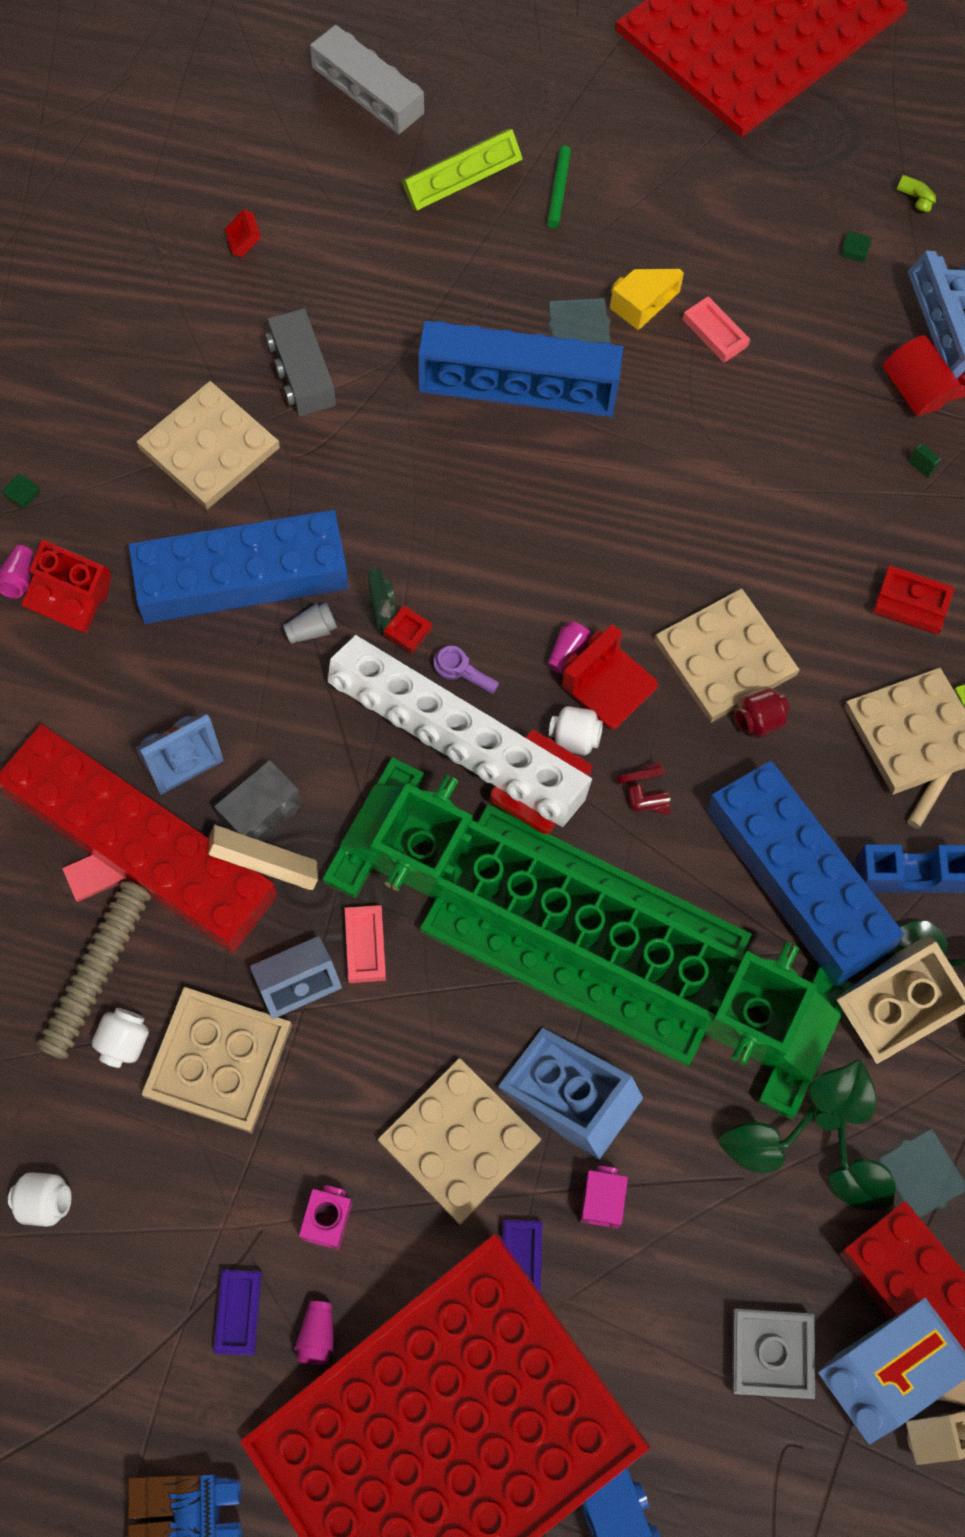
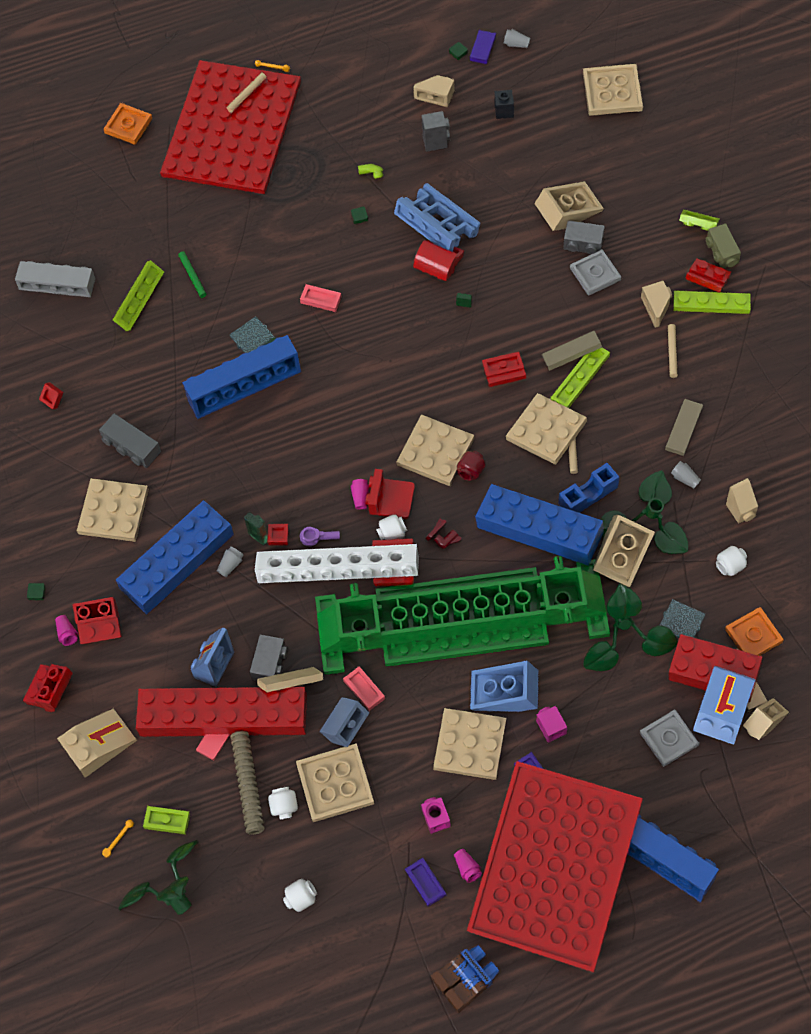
camera: 25 degrees left, 5 degrees down
(644, 294) = (274, 302): yellow slope -> none

